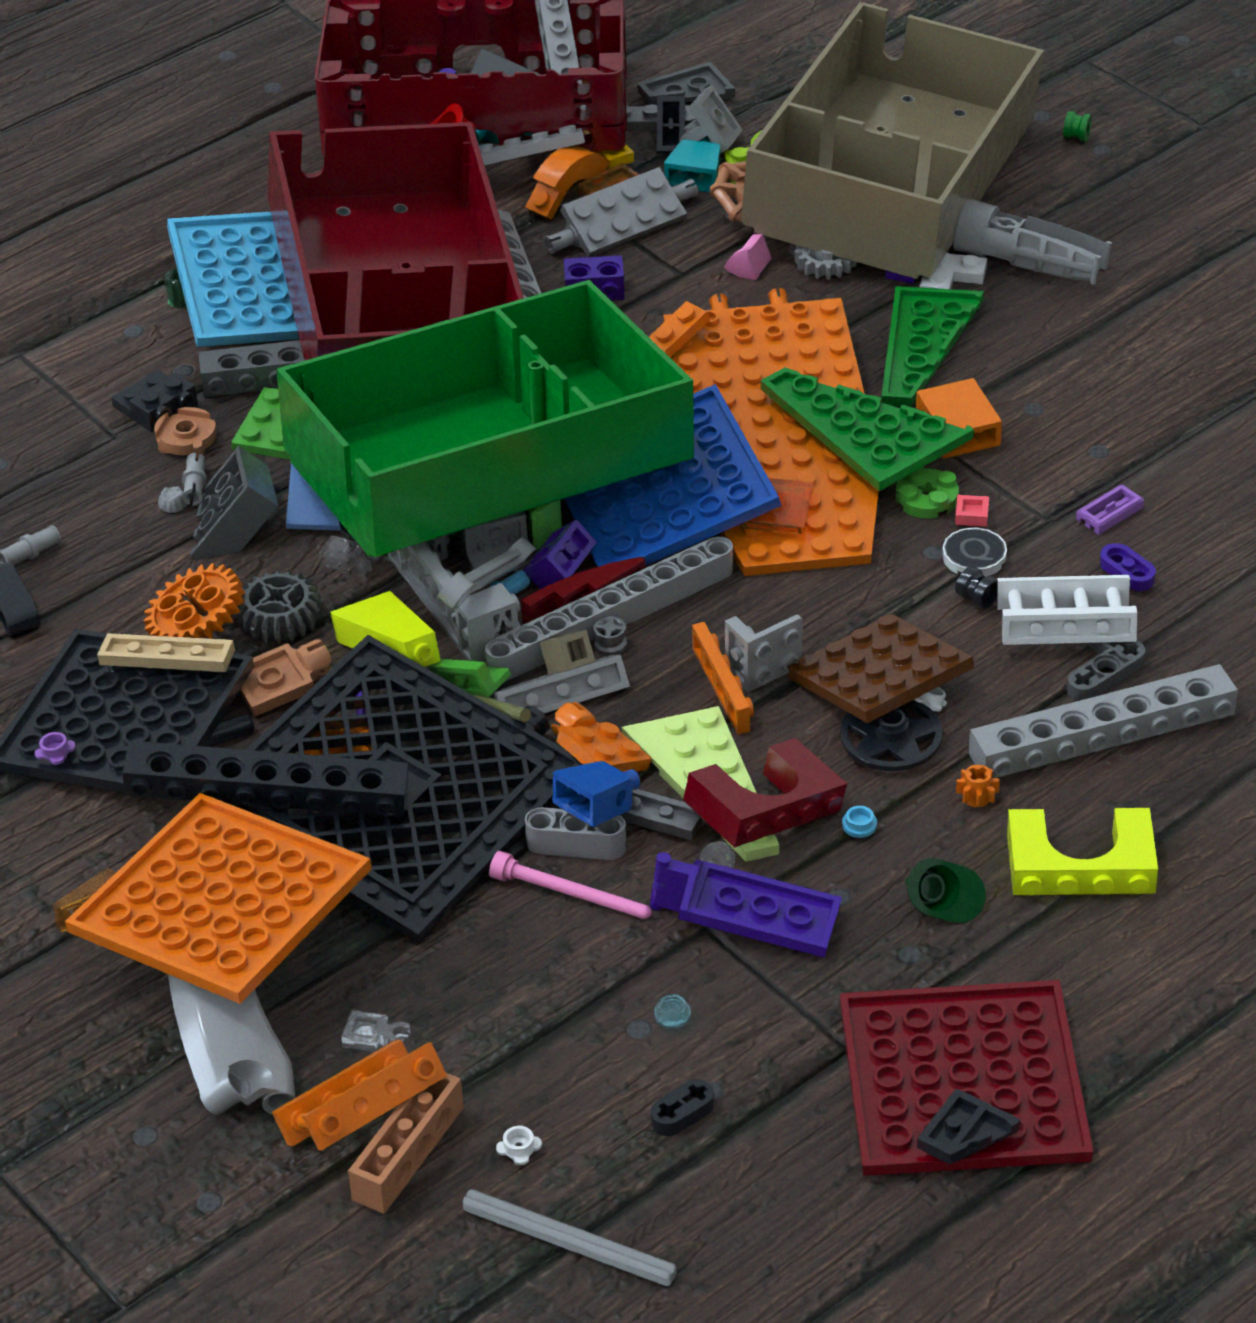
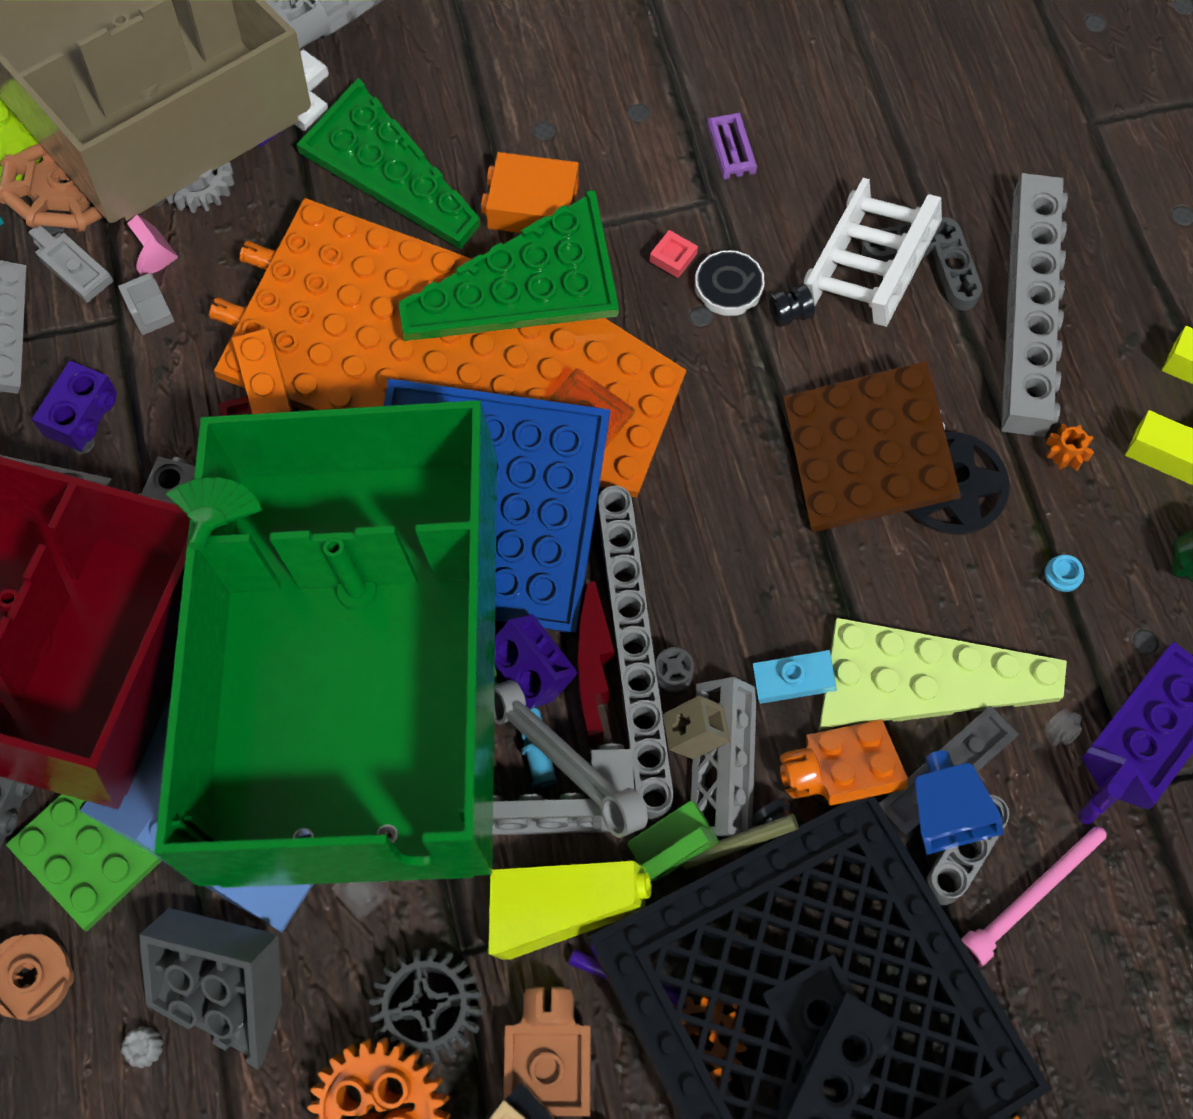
camera: 65 degrees left, 25 degrees up
(194, 479) = (126, 1005): light grey pin -> none
(525, 303) = (212, 504): none -> green hand
(651, 699) = (794, 677): none -> medium azure plate
(699, 274) = (146, 303): none -> light grey panel
(704, 231) = (70, 263): none -> light grey hinge
(719, 673) = (809, 596): orange plate -> none
(746, 816) = (1019, 595): dark red arch -> none
(762, 655) = (800, 555): light grey bracket -> none
(941, 488) = (636, 271): bright green plate -> none
(1122, 560) = (826, 172): dark purple plate -> none

